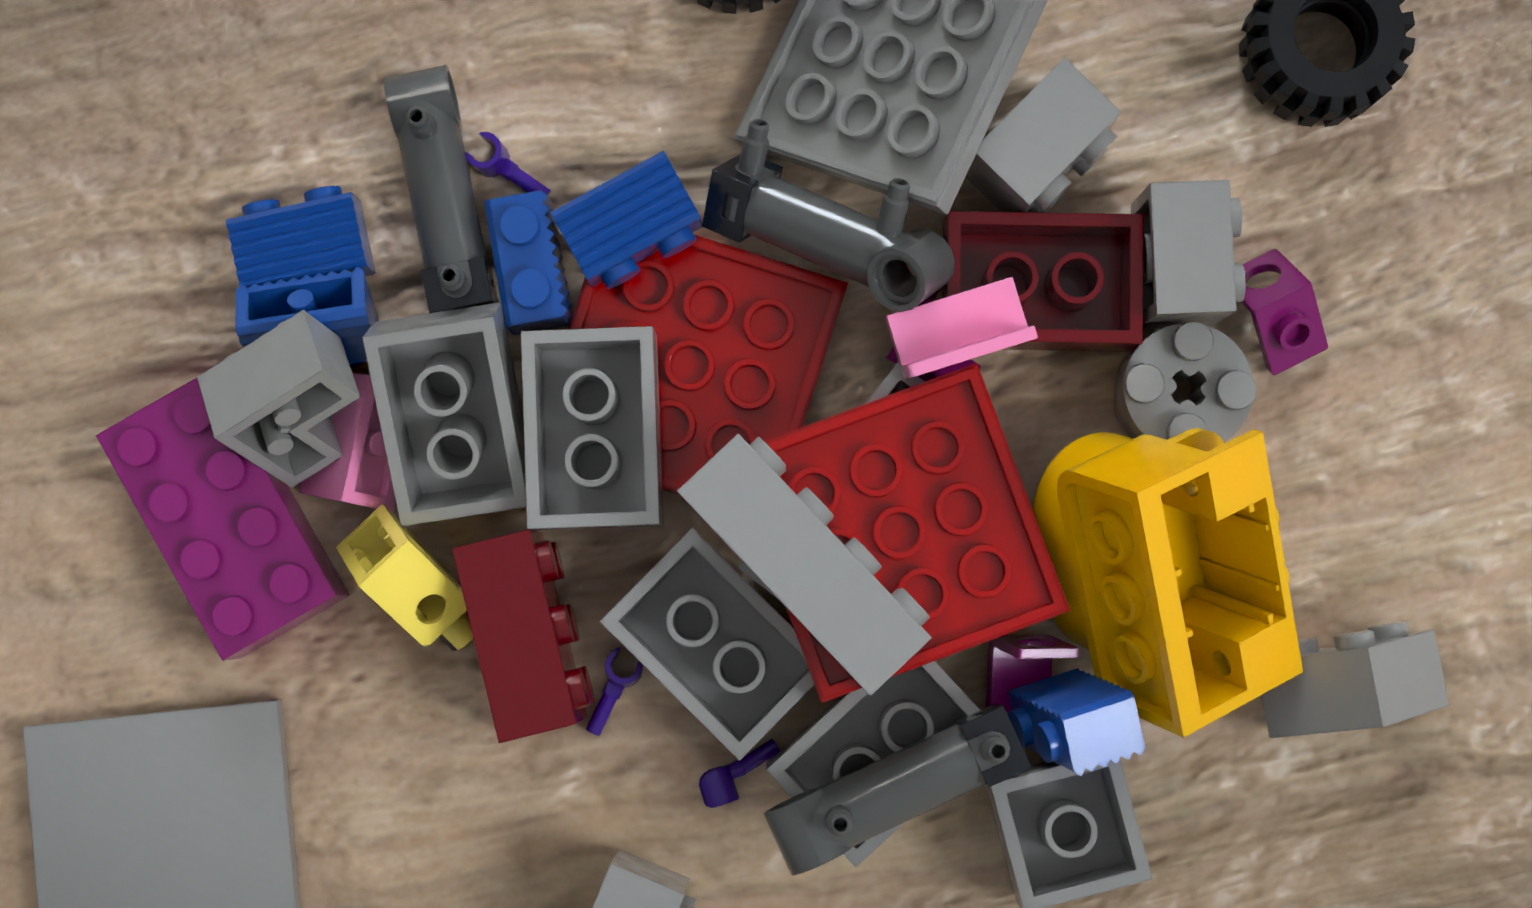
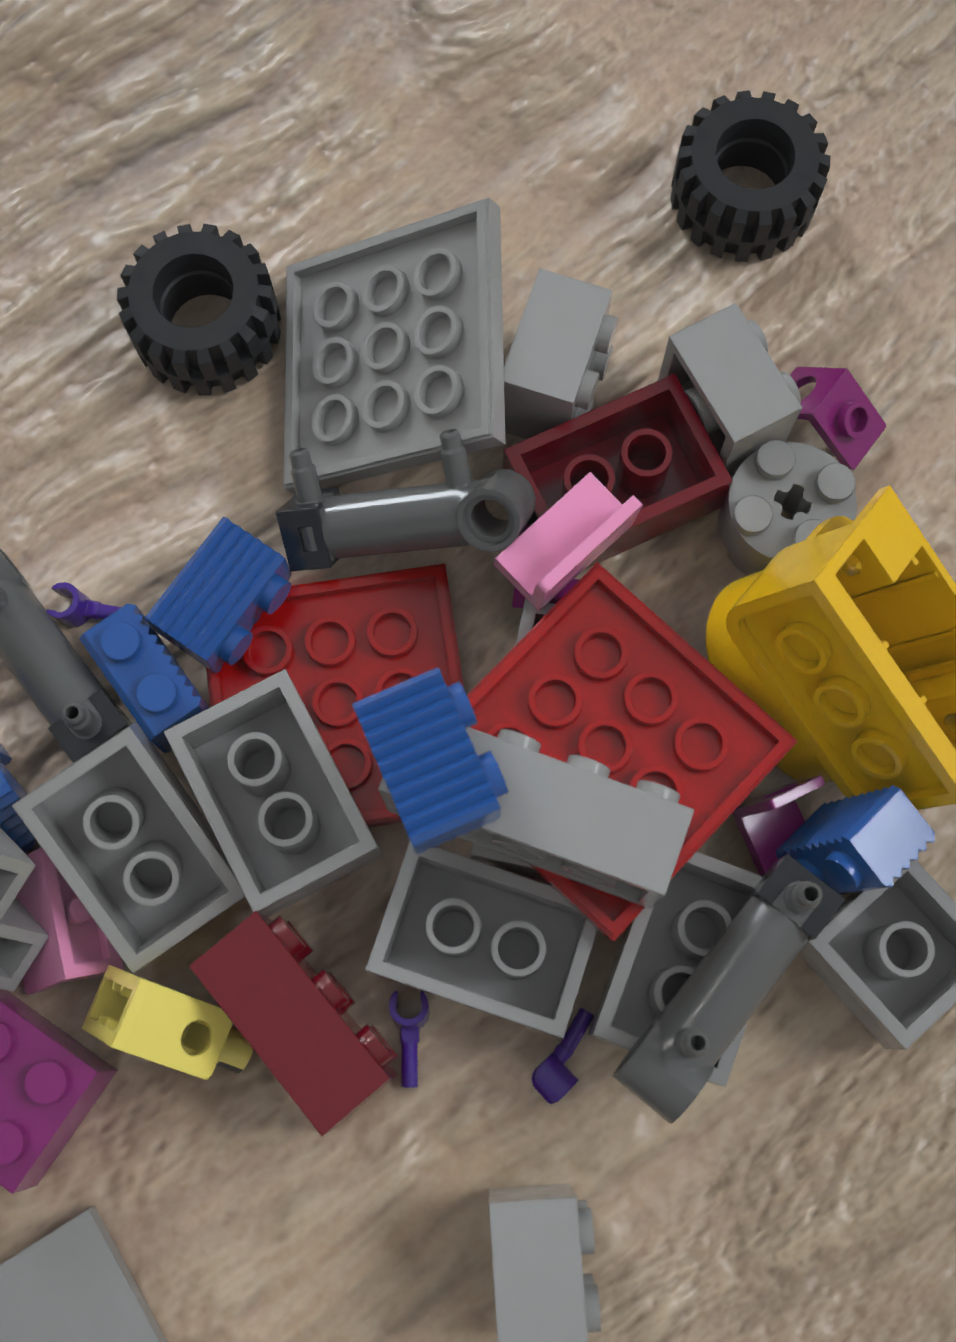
camera: 30 degrees left, 10 degrees down
(729, 491) = (430, 760): none -> blue brick

